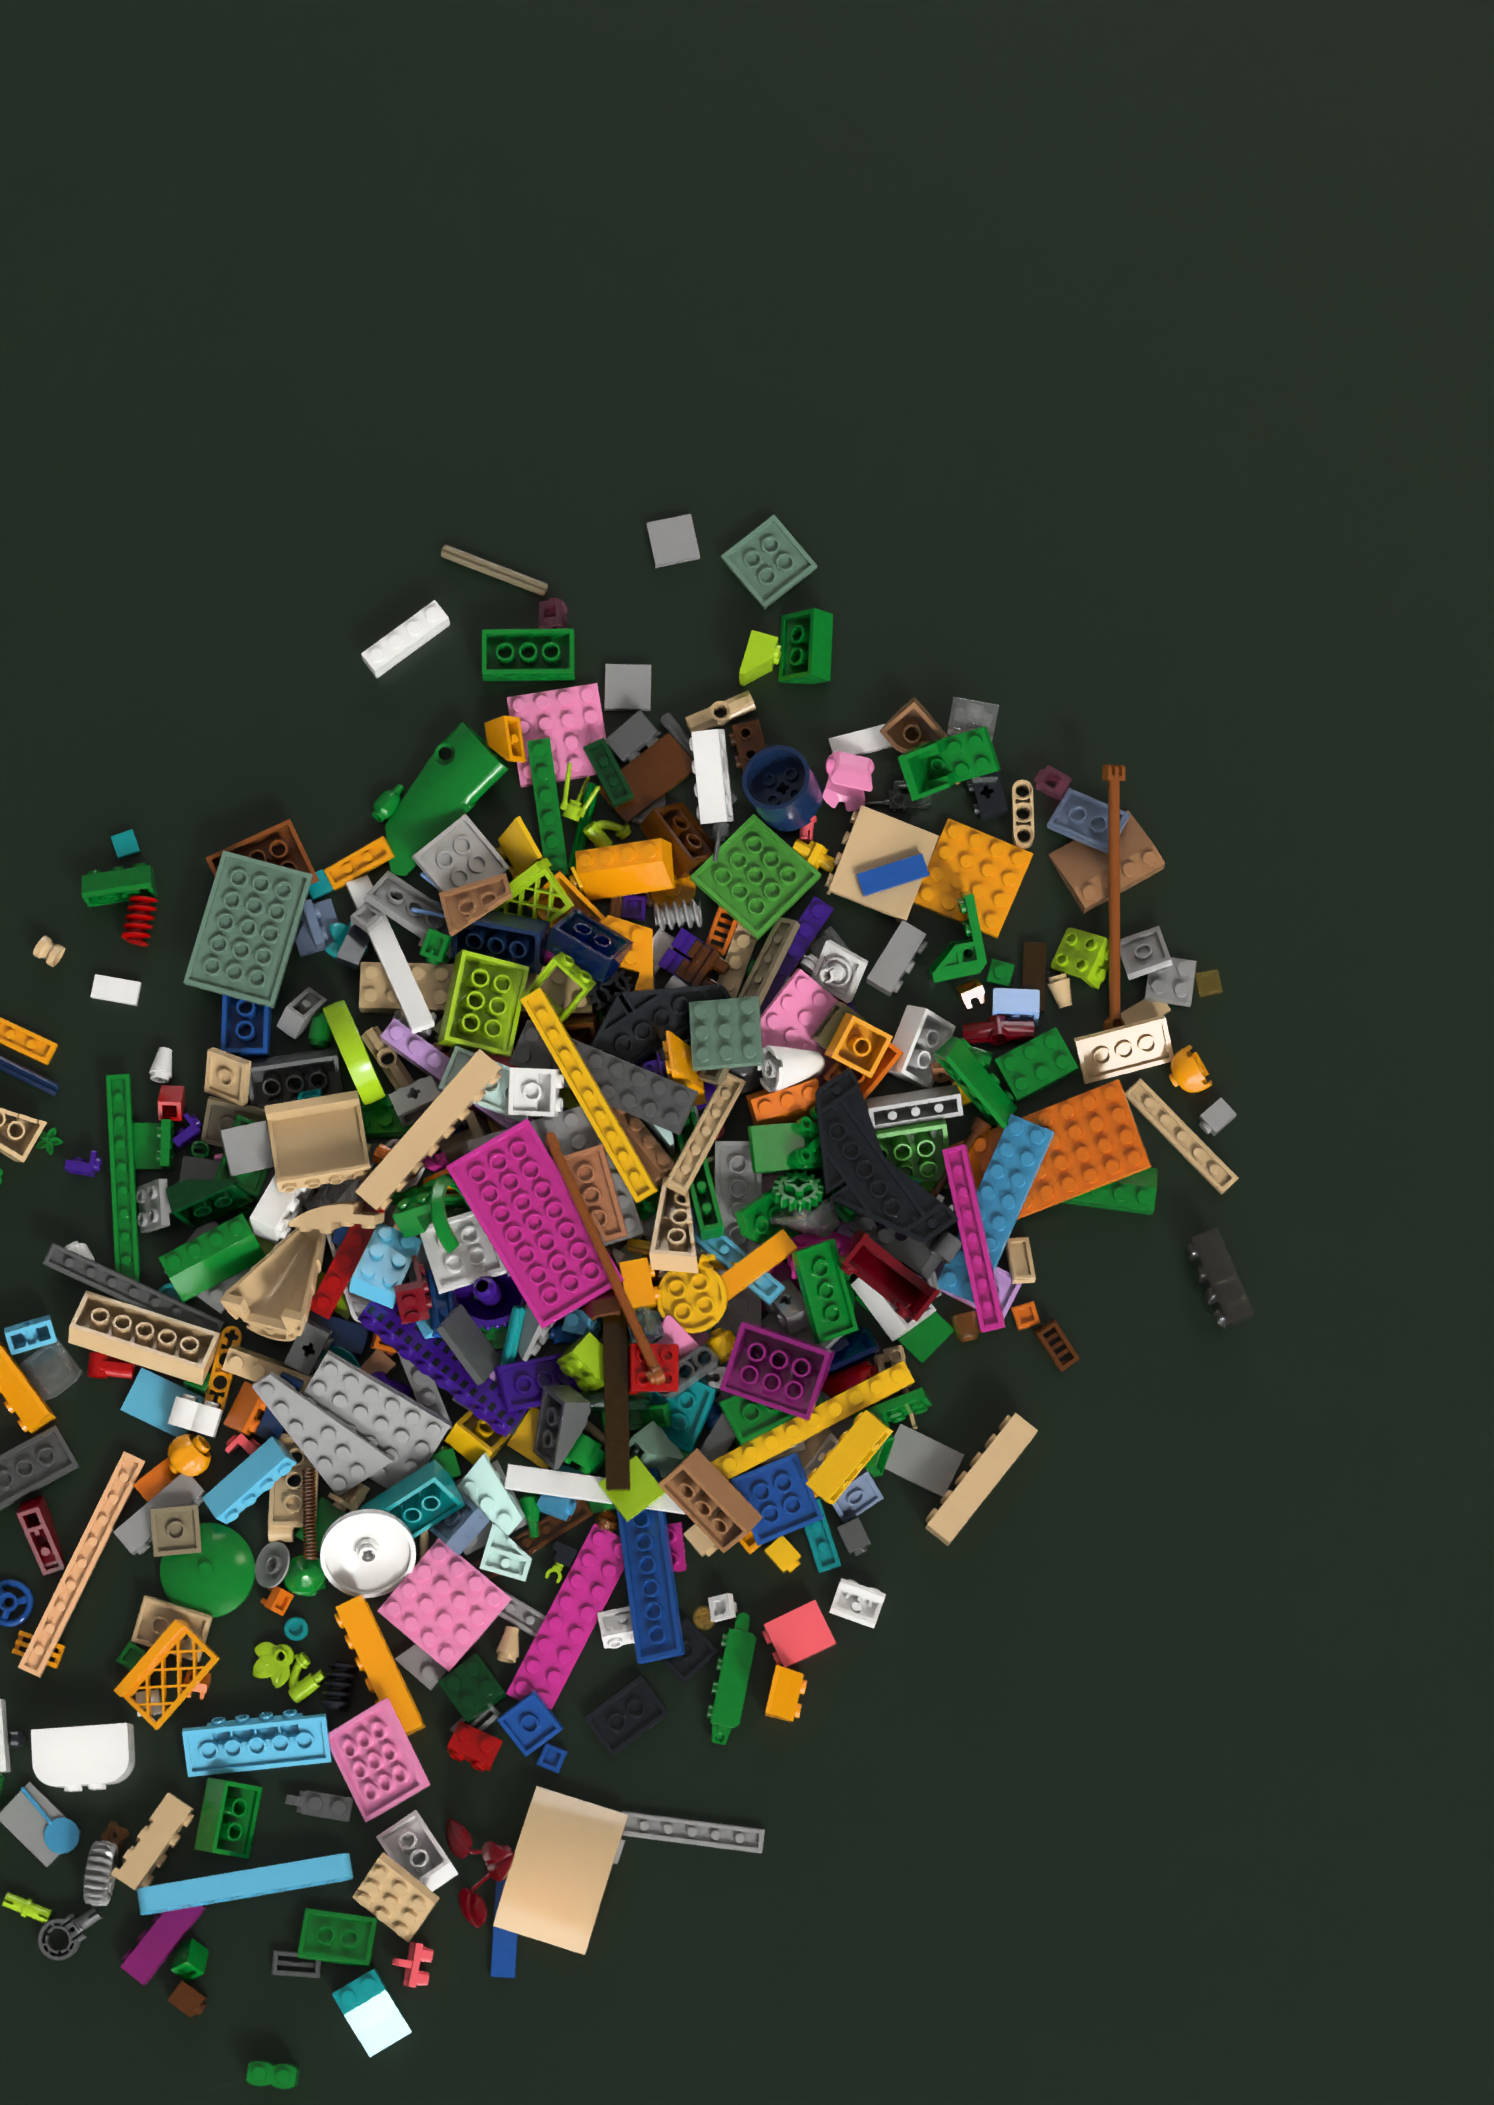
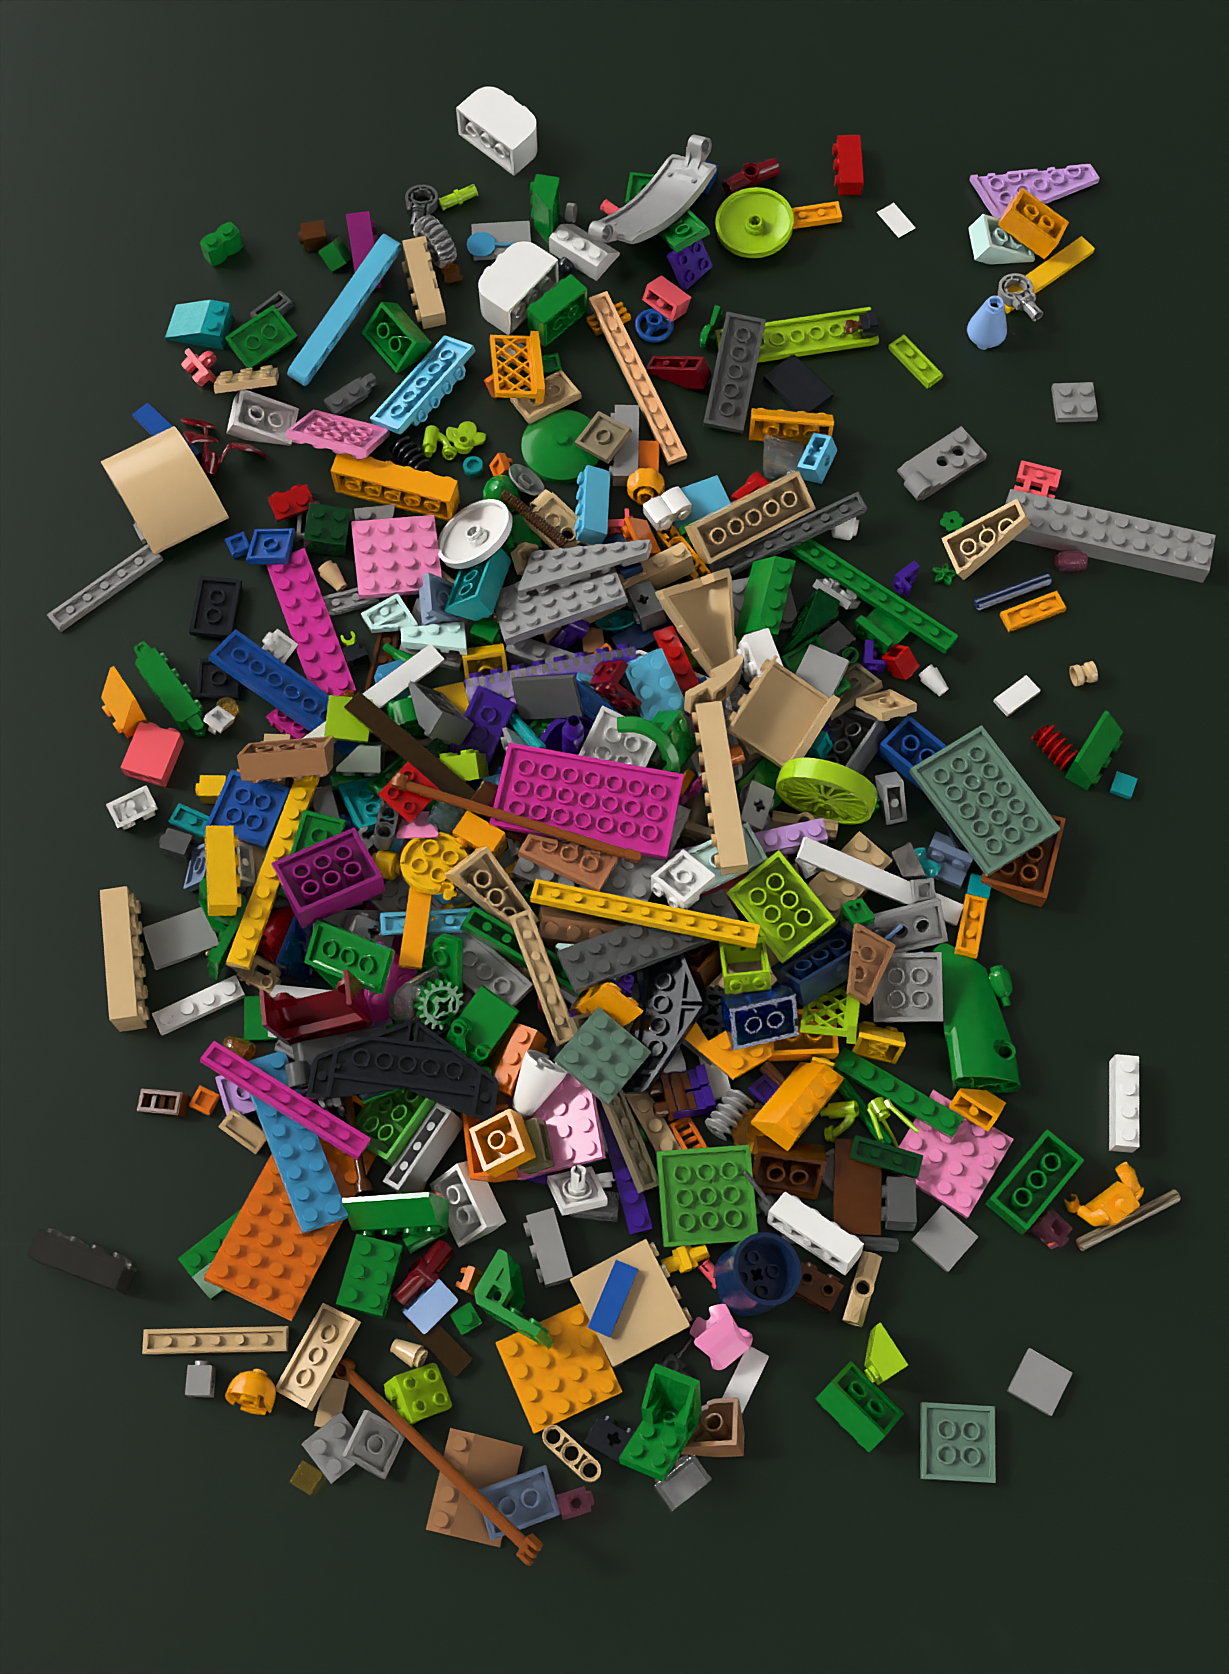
camera: 130 degrees right, 10 degrees down
(76, 1694) = (557, 309): none -> green brick
(494, 587) = (1113, 1203): none -> light orange torso
(960, 1393) = (198, 1005): none -> white plate

